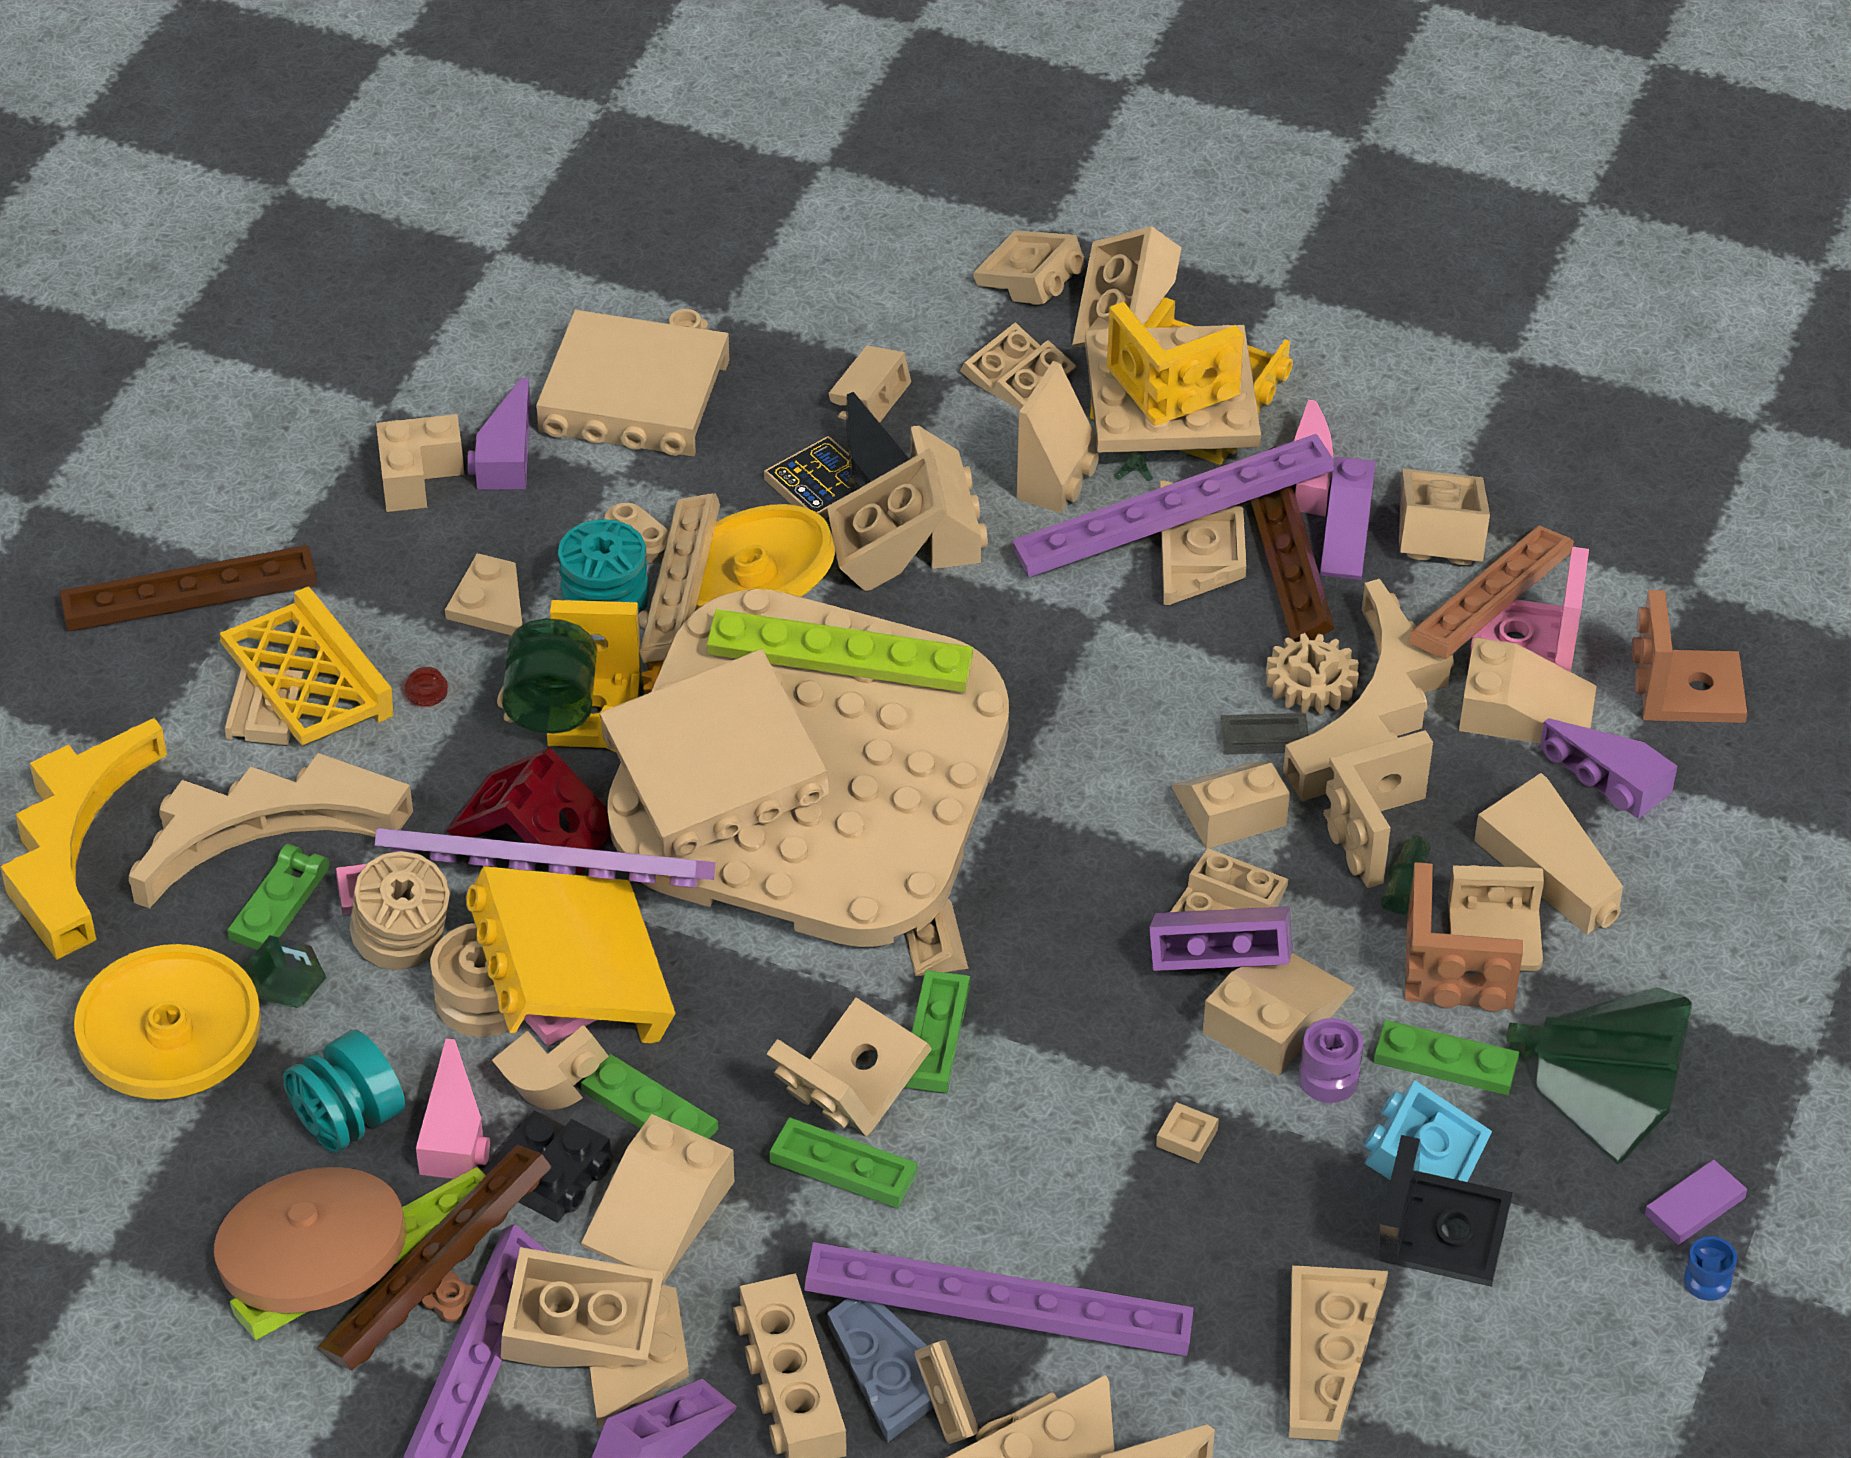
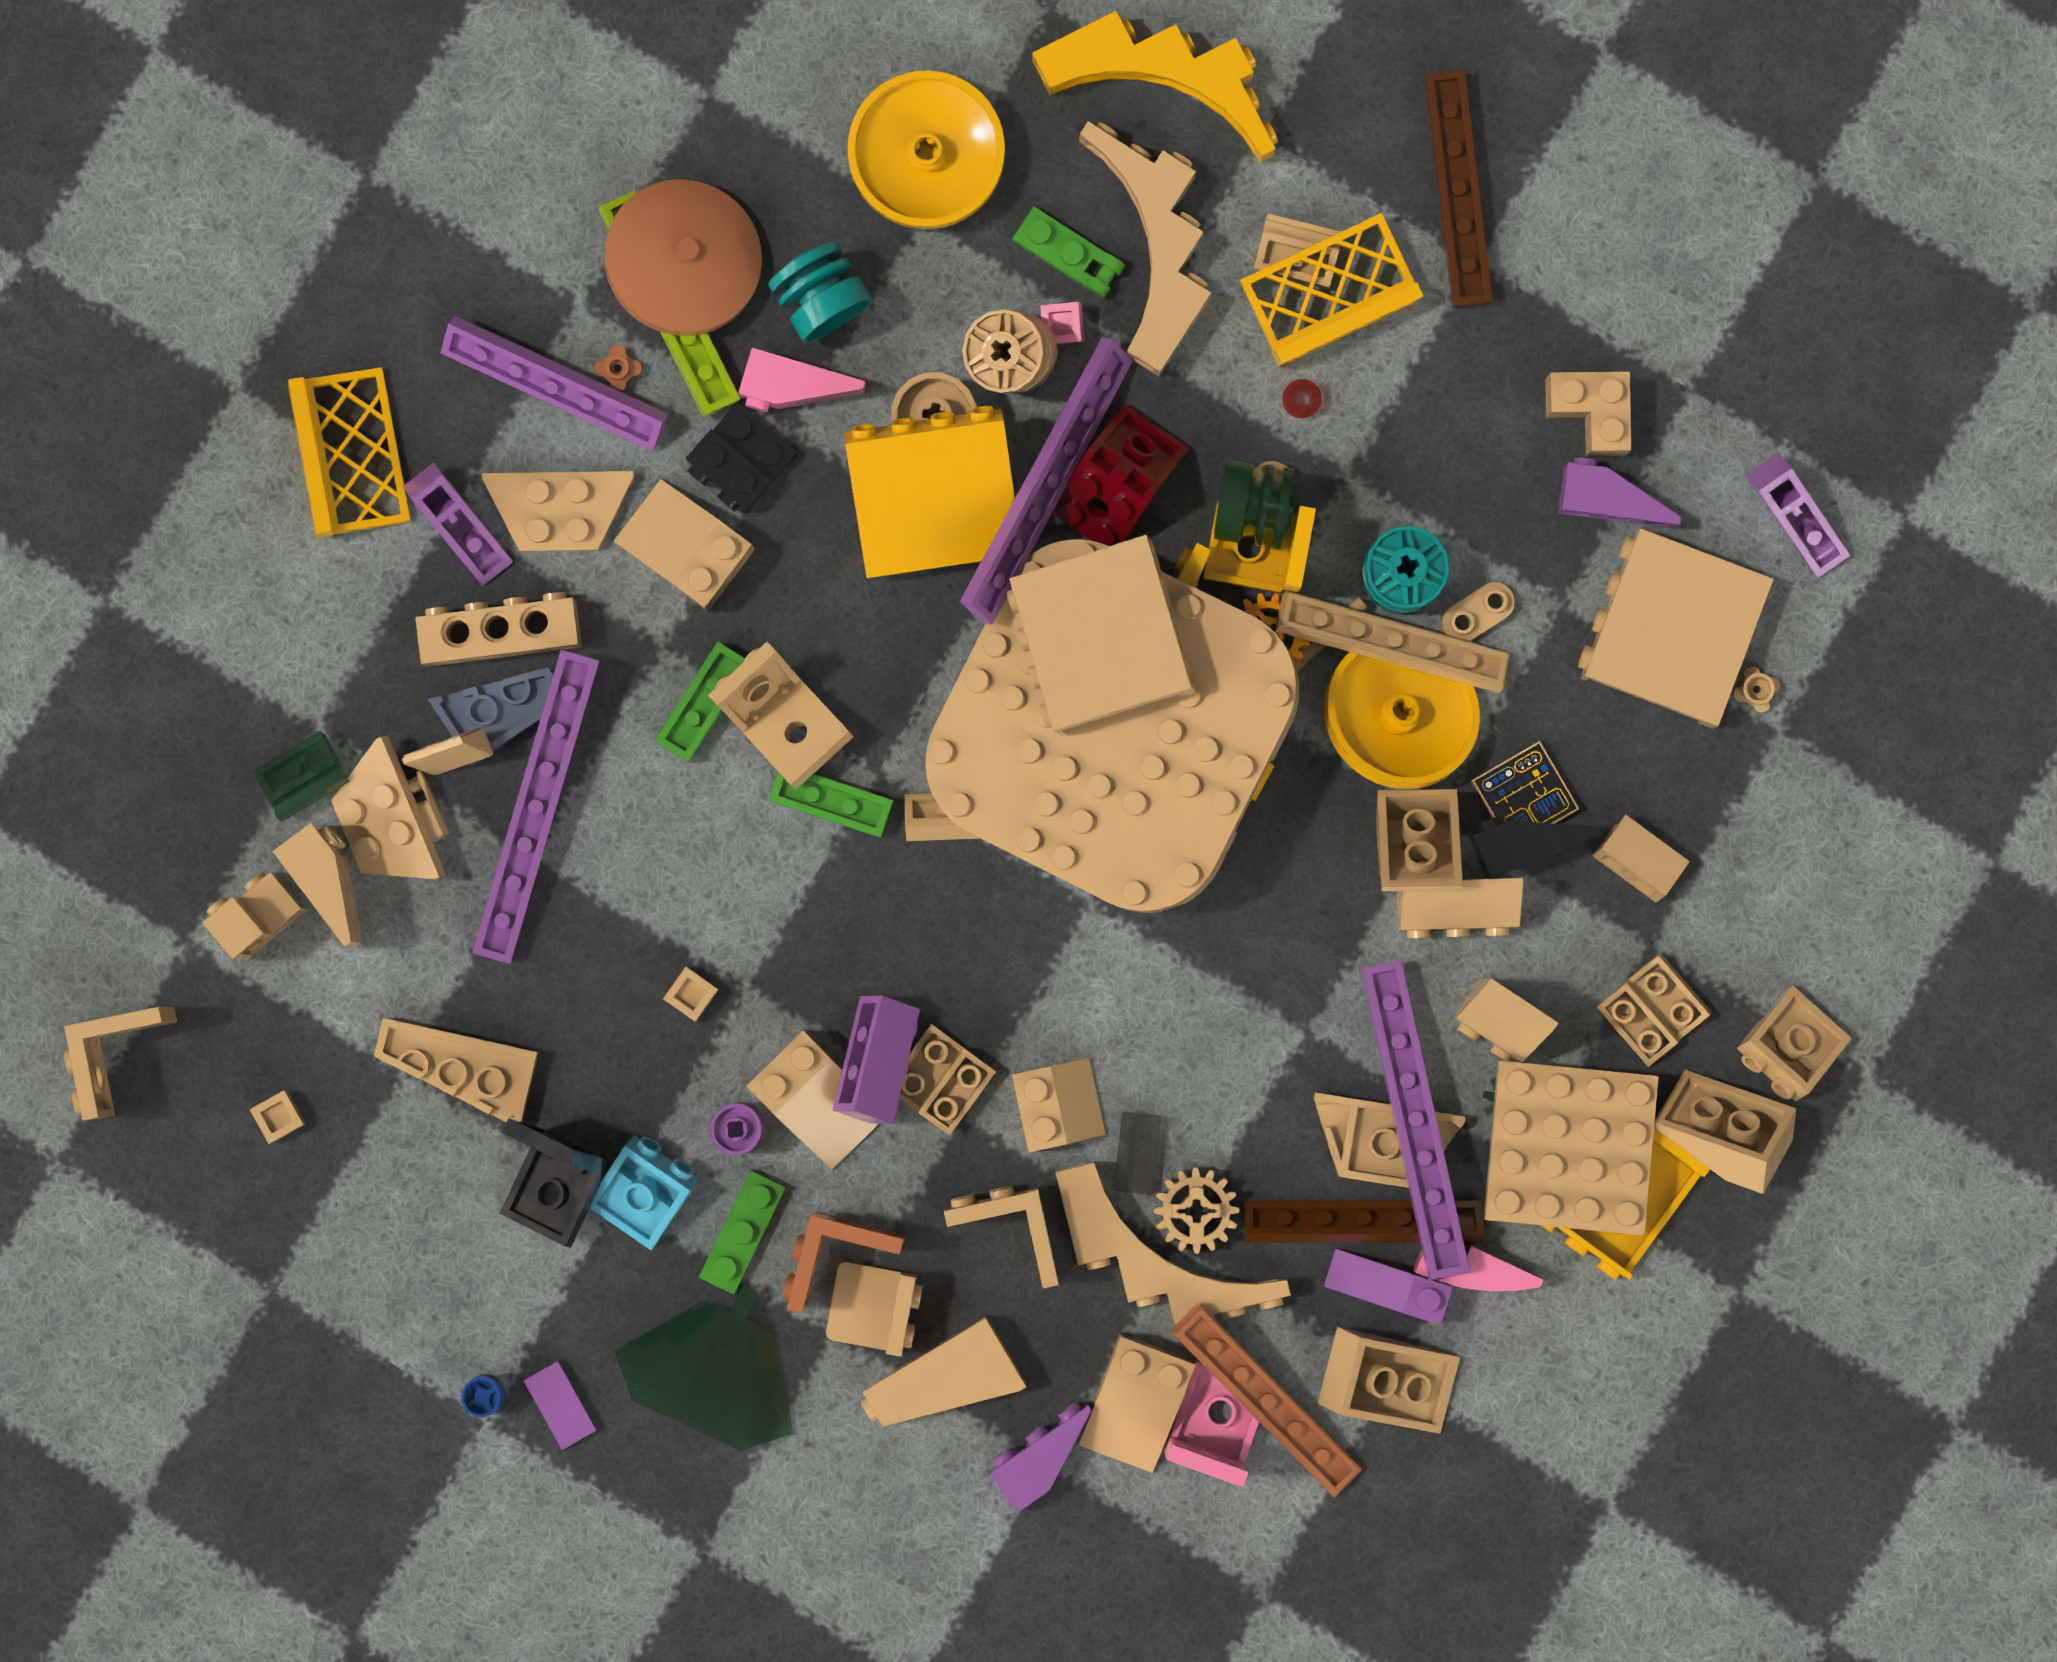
camera: 100 degrees right, 40 degrees up
(285, 971) = (966, 251): clear green brick -> none
(434, 1257) = (643, 357): reddish brown plate -> none
(487, 596) = (1413, 465): tan wing -> none
(501, 311) = (1798, 514): none -> medium lavender slope
(550, 1078) = (821, 461): tan brick -> none
(579, 1311) = (564, 466): tan slope -> none
(638, 1096) = (792, 549): bright green plate -> none
(841, 650) = (1203, 762): lime plate -> none
(1172, 380) = (1526, 1149): yellow bracket -> none
(1401, 874) = (948, 1244): clear green axle -> none
(1666, 673) = (1143, 1535): nougat bracket -> none

